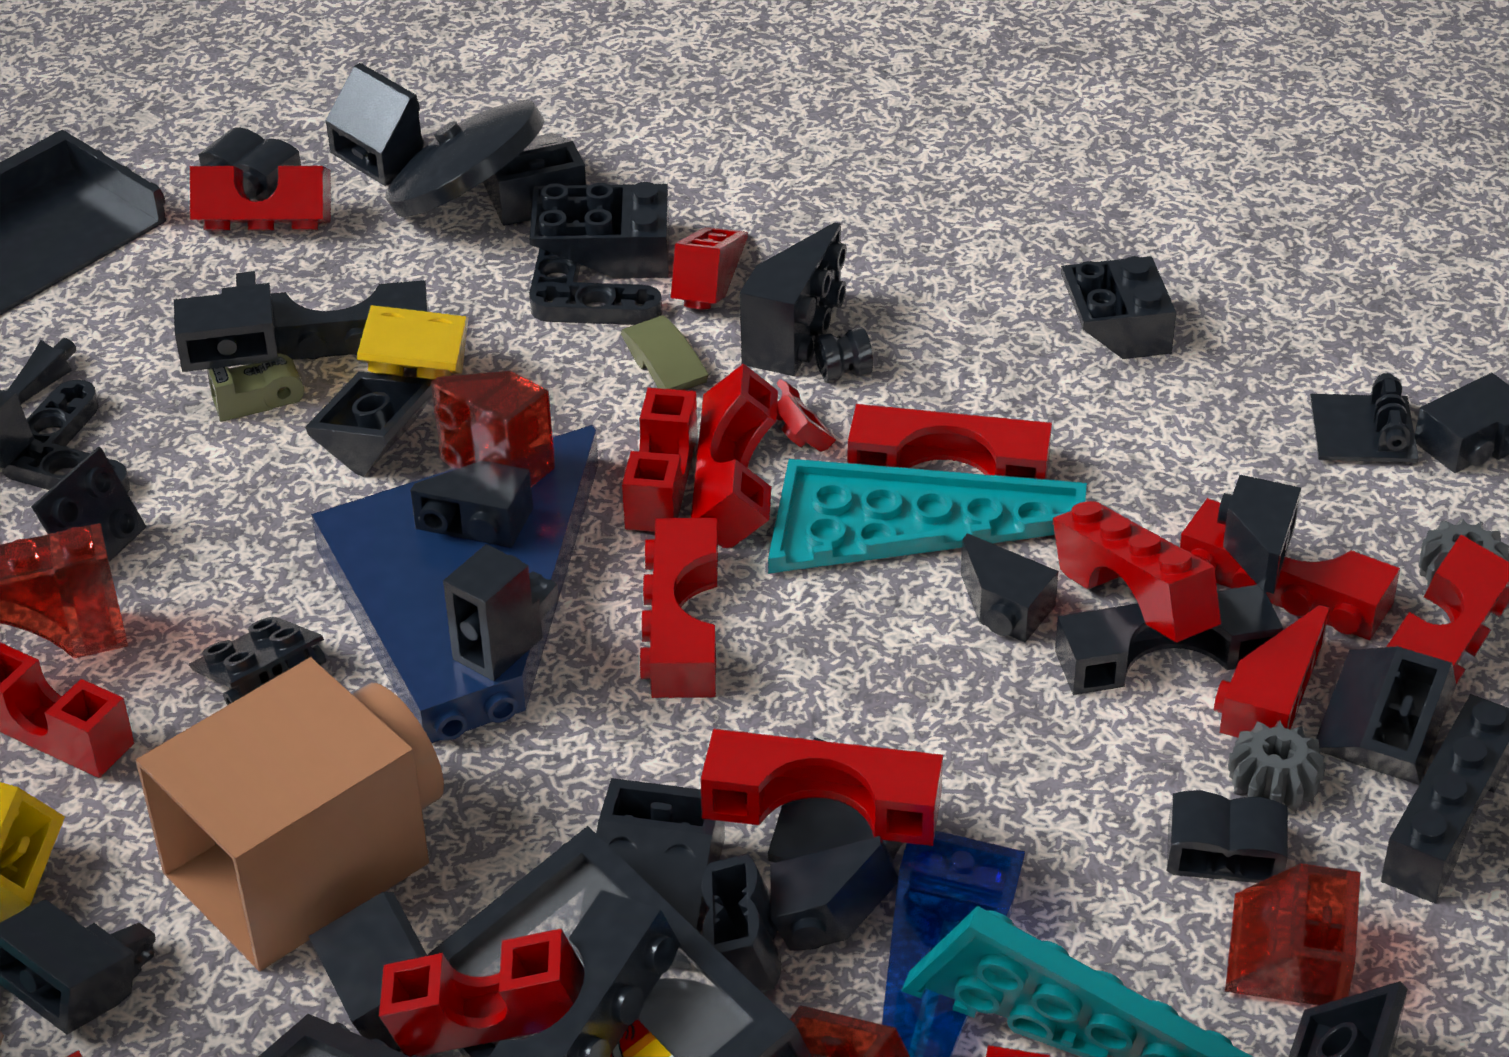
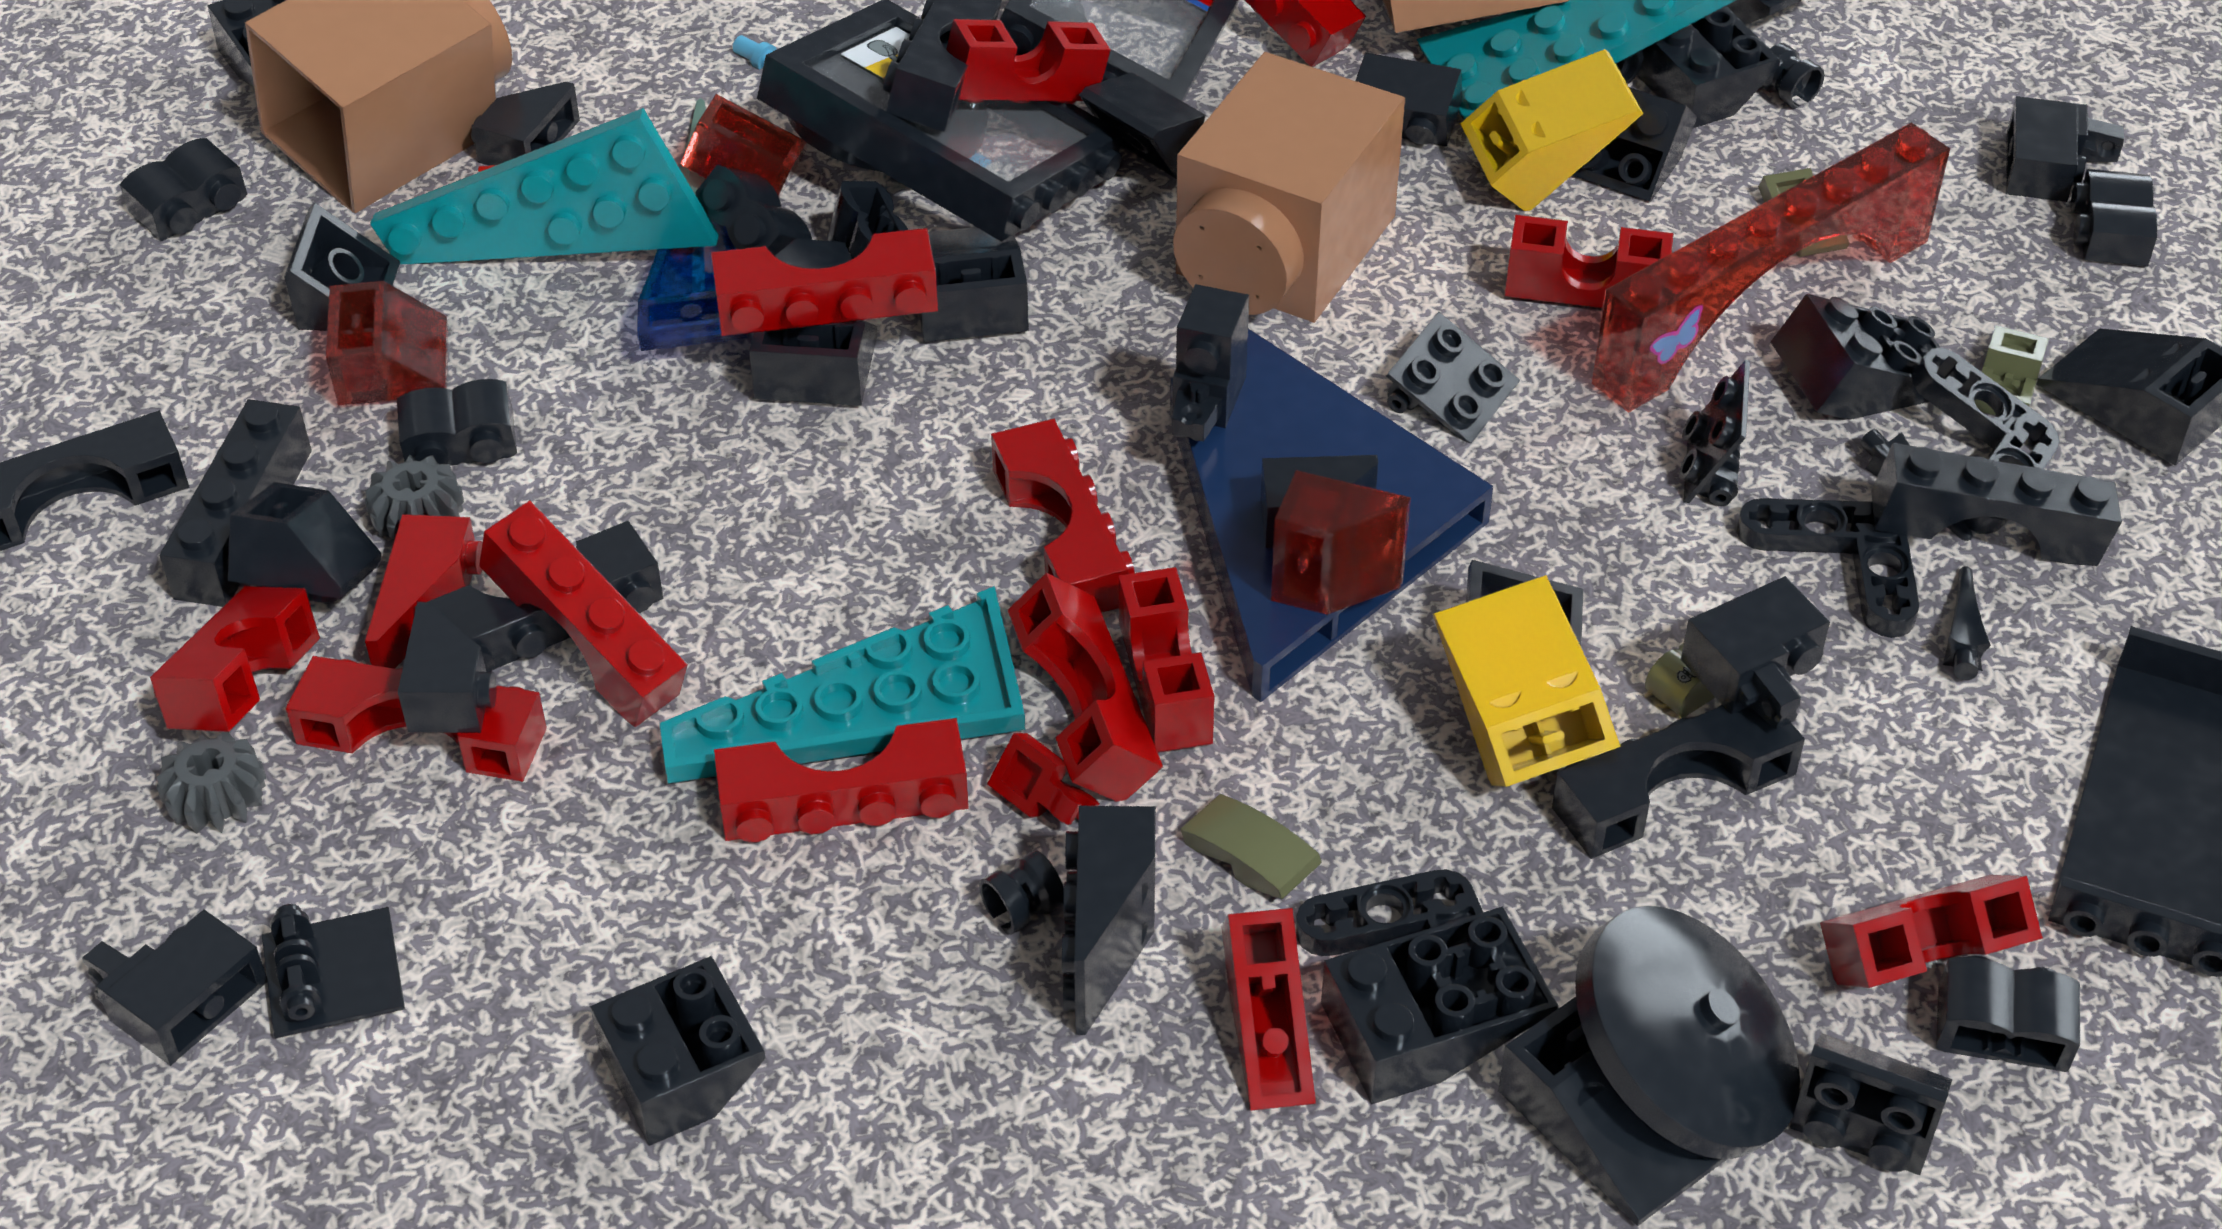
camera: 160 degrees right, 5 degrees up
(859, 973) = (749, 210): none -> black brick
(1007, 589) = (727, 619): black slope -> none

